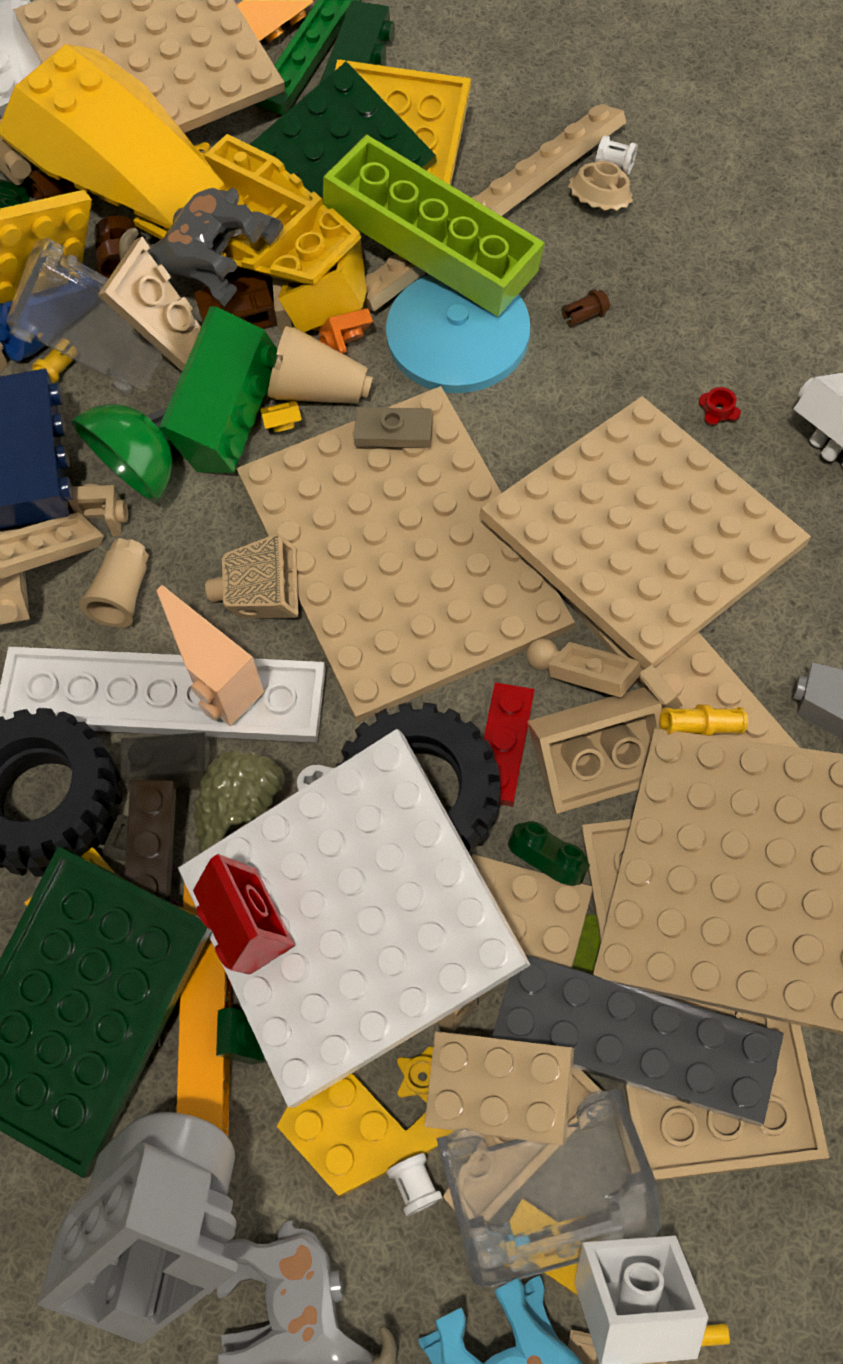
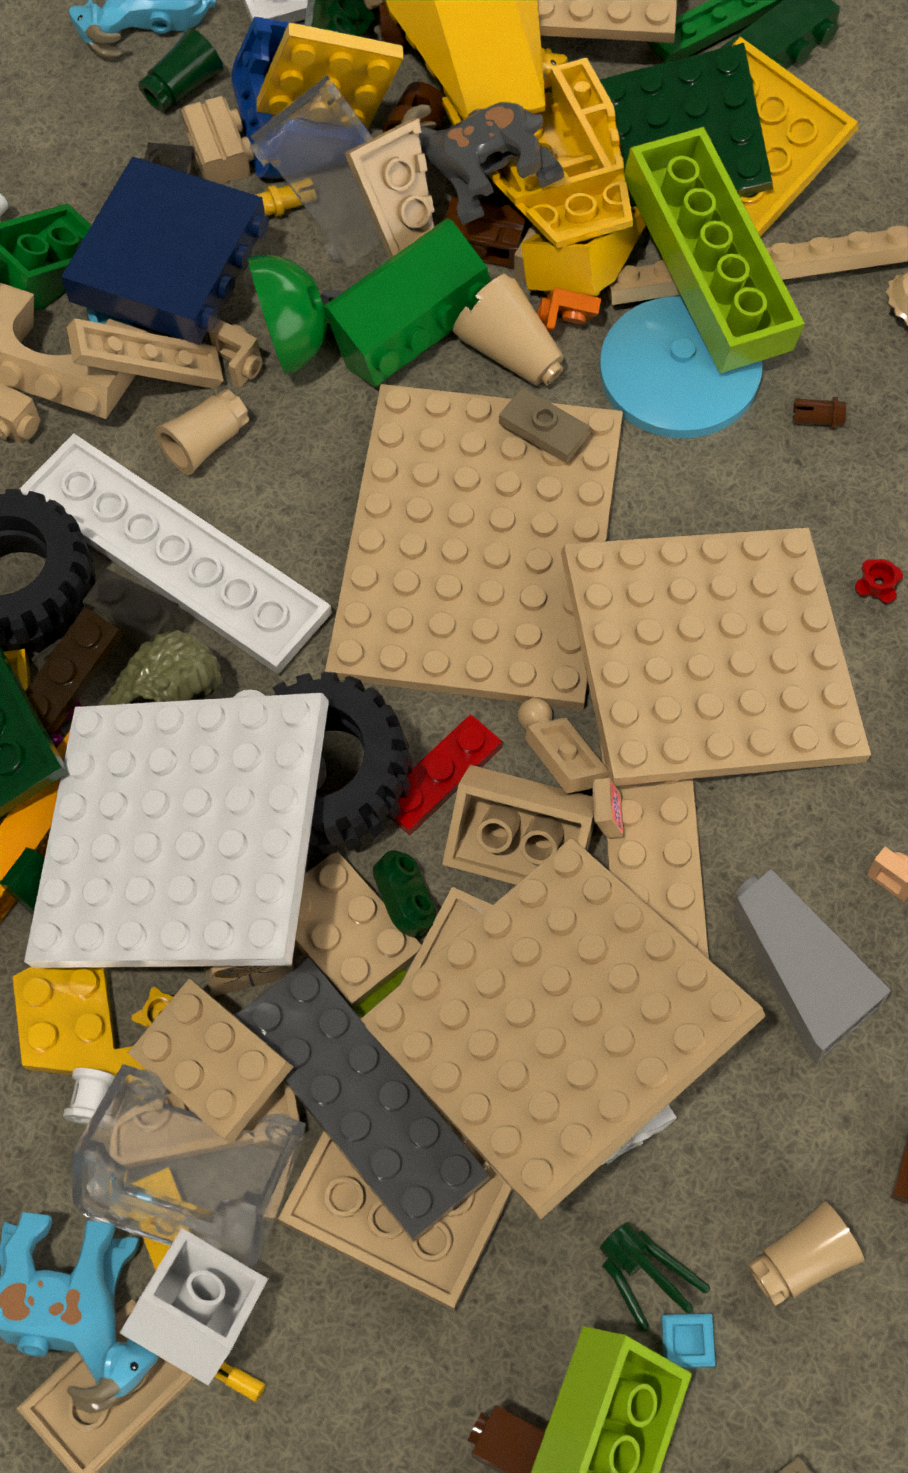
camera: 30 degrees right, 0 degrees up
(219, 668) = (220, 556): light nougat slope -> none
(240, 915) = (87, 773): red slope -> none
(258, 580) = (325, 497): tan torso -> none
(281, 416) = (454, 357): yellow plate -> none
(704, 720) = (624, 859): yellow pin -> none

